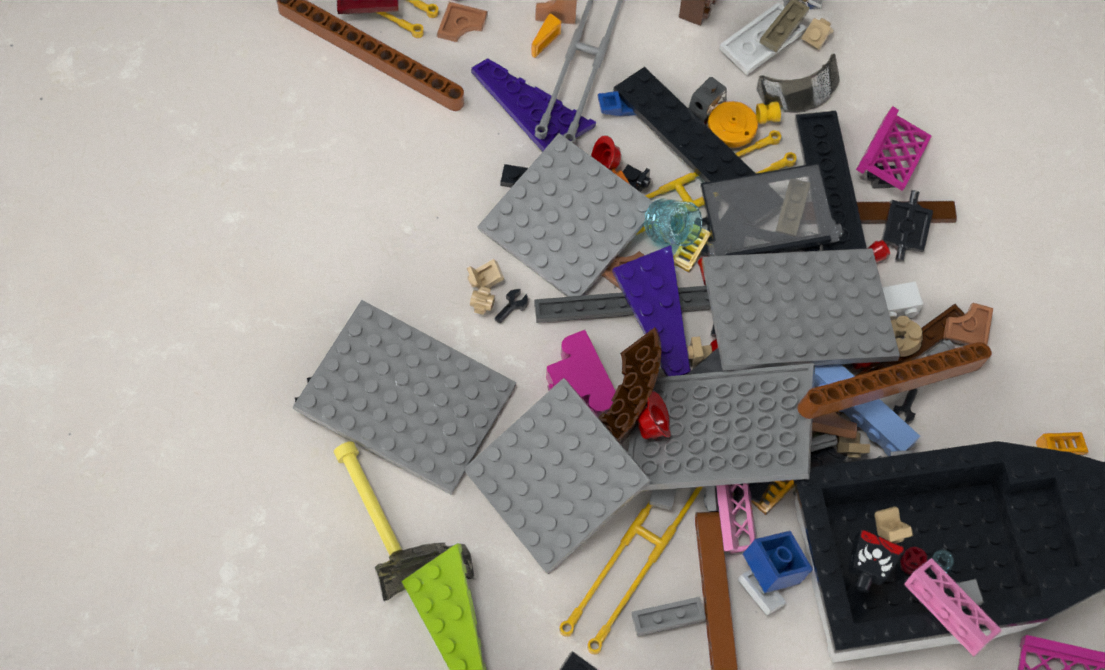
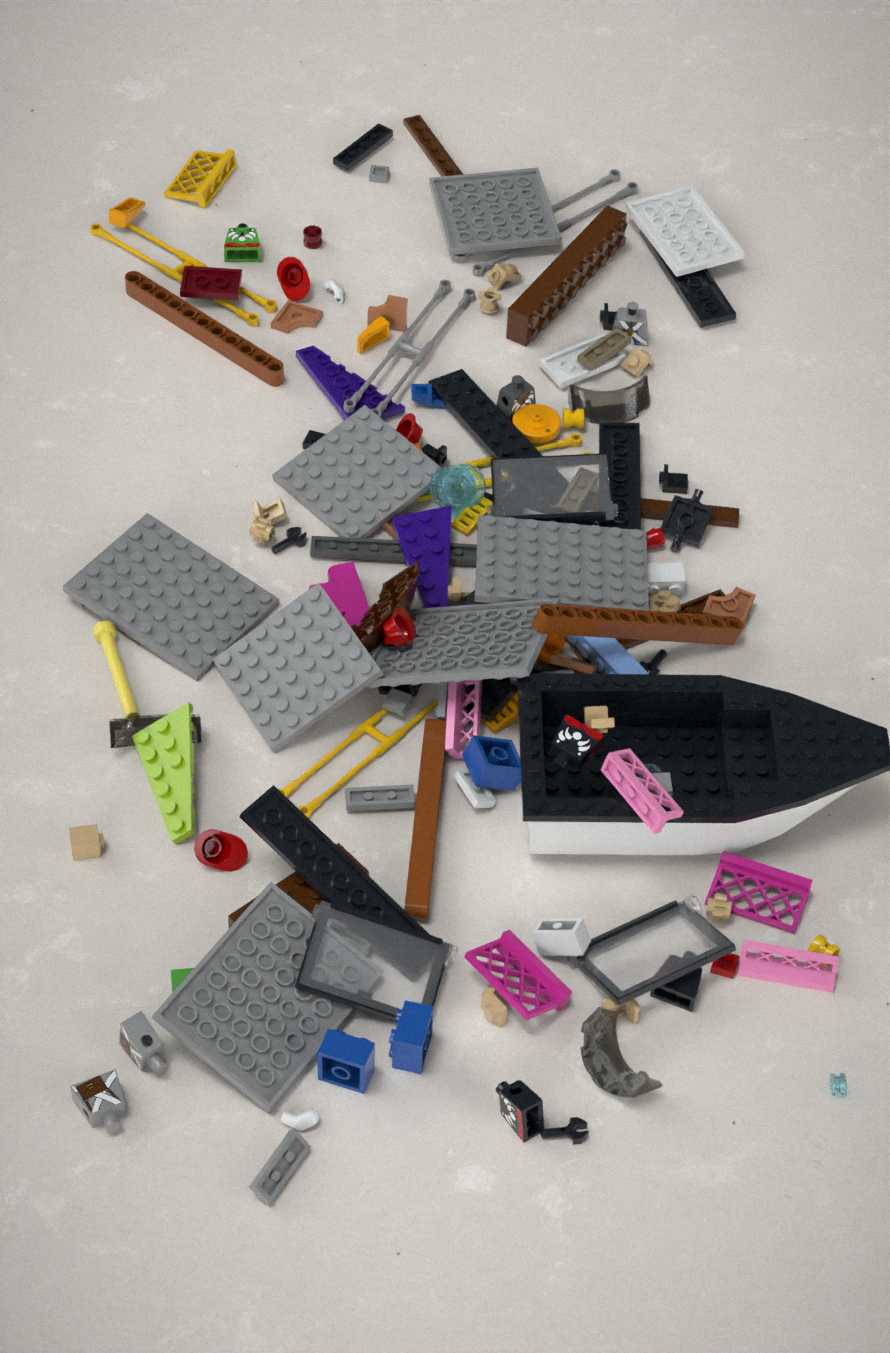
camera: 10 degrees right, 15 degrees down
(878, 144) = (677, 449): dark pink fence -> none

